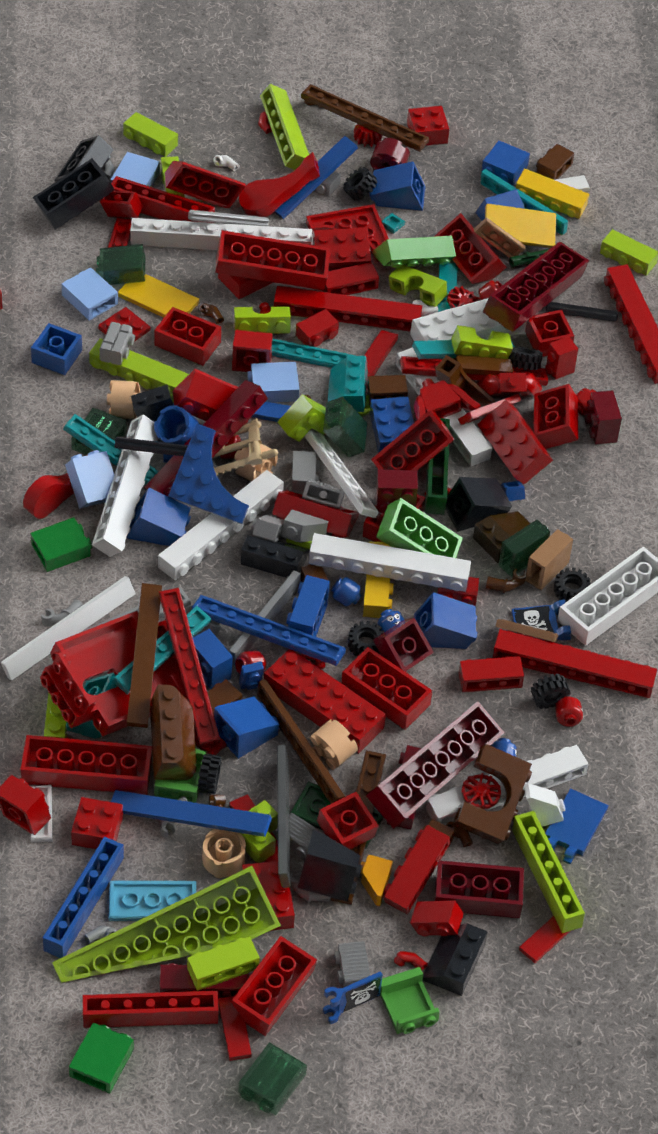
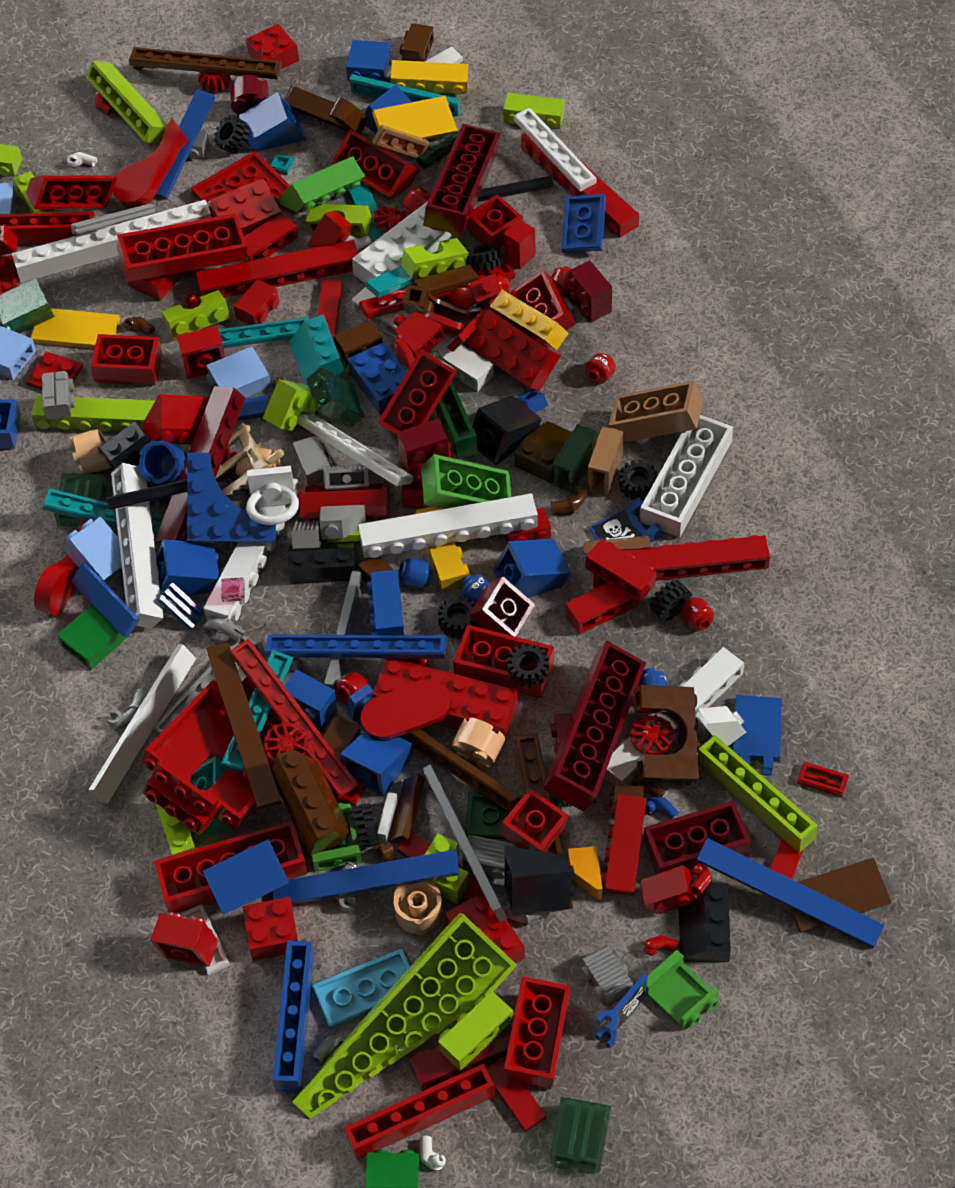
camera: 15 degrees left, 5 degrees up
(80, 519) = (105, 600): none -> blue tile
(93, 774) = (245, 877): none -> blue tile
(141, 1047) = (428, 1156): none -> white arm
(148, 545) = (186, 600): none -> tile
(169, 576) = (225, 627): none -> light grey piece
(174, 680) = (286, 741): none -> red wheel
(188, 548) = (233, 589): none -> clear pink plate
(232, 775) = (387, 818): none -> white tile
(251, 774) = (406, 809): none -> reddish brown tile
(256, 479) = (271, 488): none -> white tile
(285, 694) = (406, 709): none -> red tile
(402, 706) = (528, 654): none -> black tyre
(405, 290) = (330, 230): none -> red slope
(454, 194) = (338, 113): none -> reddish brown beam
(462, 850) = (659, 804): none -> blue arm
(466, 920) = (703, 878): none -> red arm
(518, 650) = (621, 569): none -> red brick
(537, 421) = (529, 319): none -> yellow brick
(537, 959) = (790, 893): none -> blue tile
(577, 978) = (854, 886): none -> reddish brown tile
(583, 483) = (600, 368): none -> red head
(596, 875) = (820, 786): none -> red tile
(611, 534) = (657, 411): none -> medium nougat brick
(626, 360) = (583, 223): none -> blue tile
(630, 290) = (555, 149): none -> white tile

